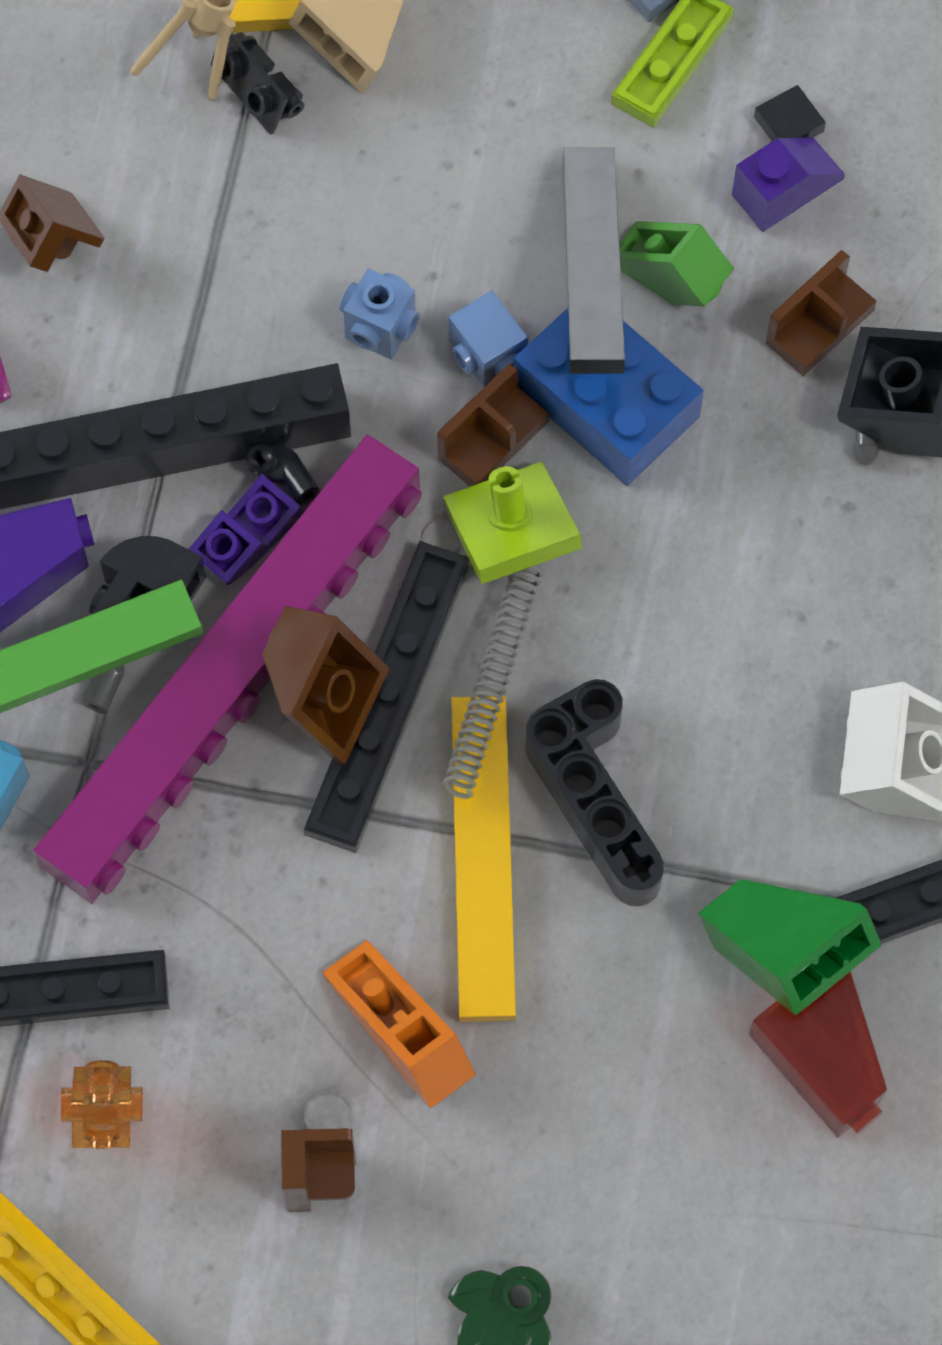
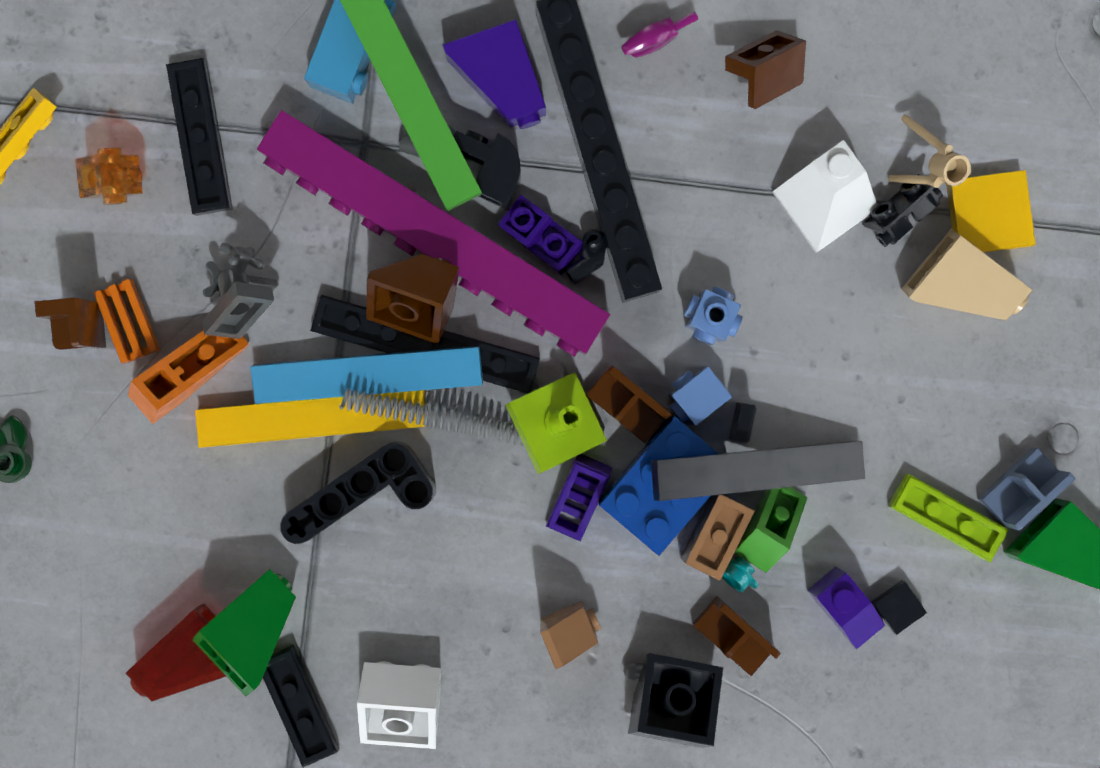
camera: 90 degrees right, 20 degrees up
(227, 168) = (828, 196): none -> white slope
(299, 920) = (241, 296): none -> dark grey piece
(317, 1090) = (112, 324): none -> orange tile
(423, 755) = (367, 373): none -> dark azure tile
(528, 288) = (742, 422): none -> black tile
(614, 479) = (592, 468): none -> dark purple slope
(681, 325) = (716, 535): none -> medium nougat panel
(734, 305) = (739, 575): none -> teal plate
(807, 521) = (569, 633): none -> medium nougat slope

